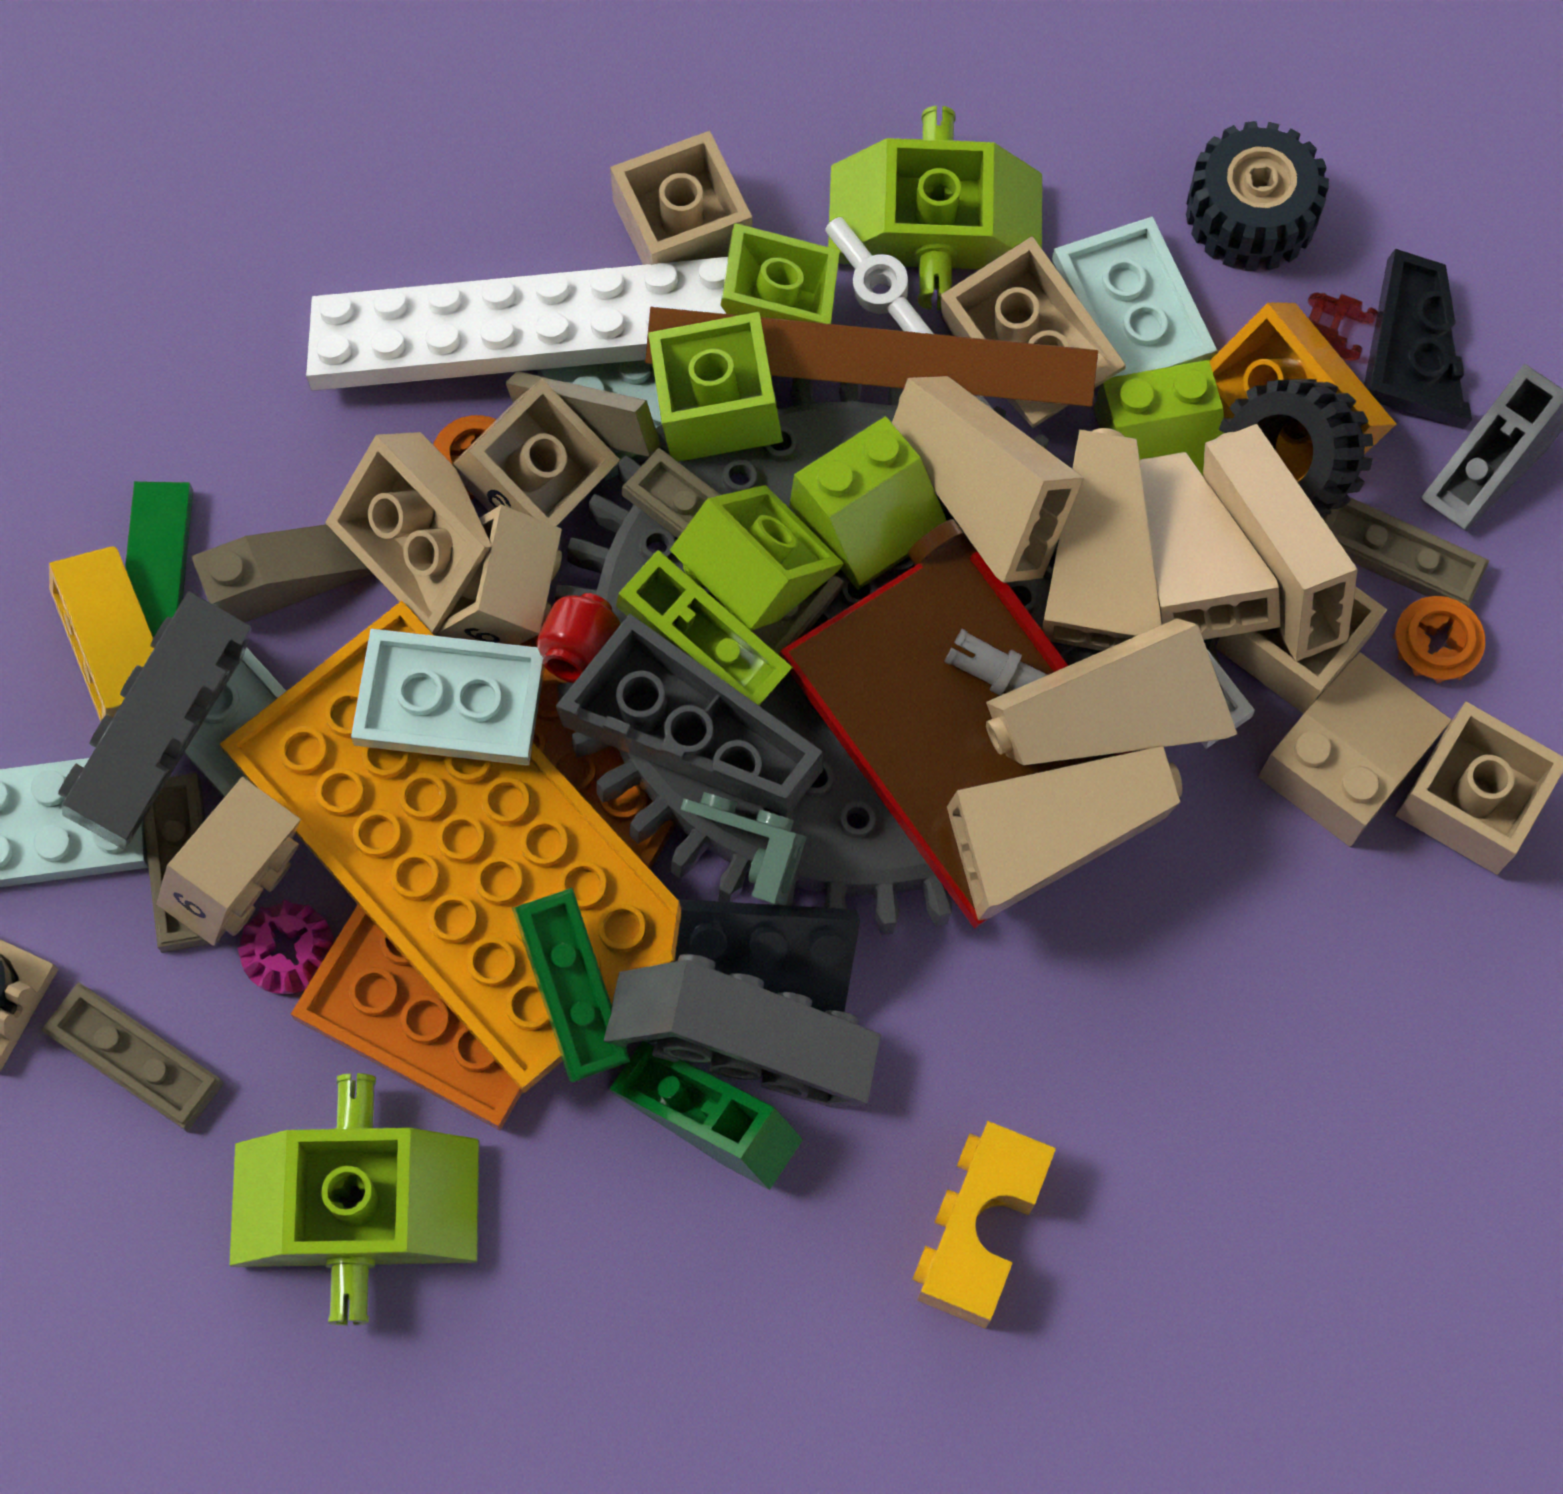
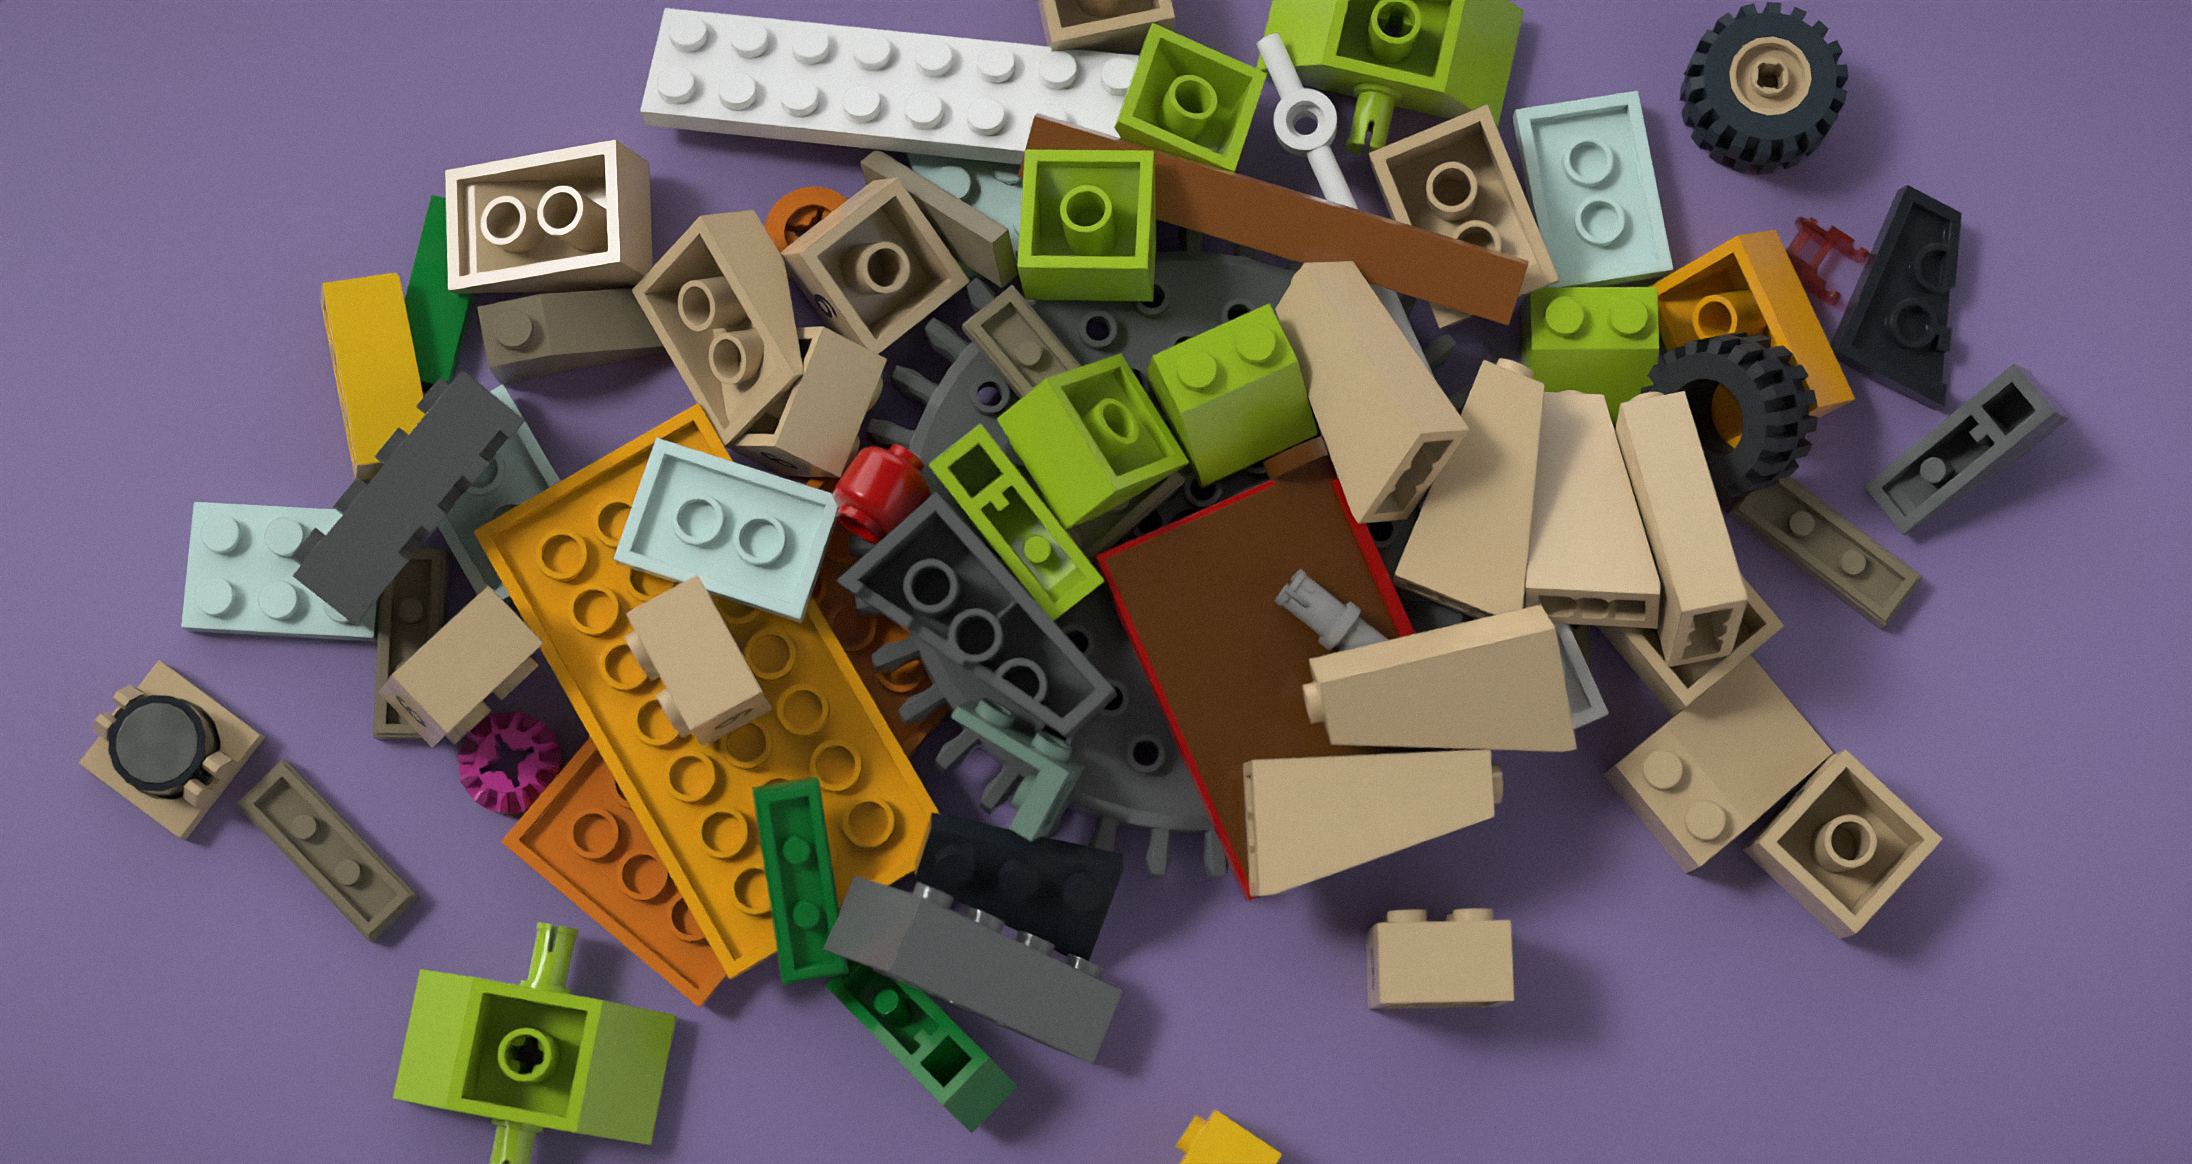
camera: 10 degrees right, 10 degrees up
(242, 479) = (550, 222): none -> tan slope
(444, 805) = (698, 661): none -> tan brick
(1157, 952) = (1439, 963): none -> tan brick
(1464, 638) = (1871, 660): orange gear -> none

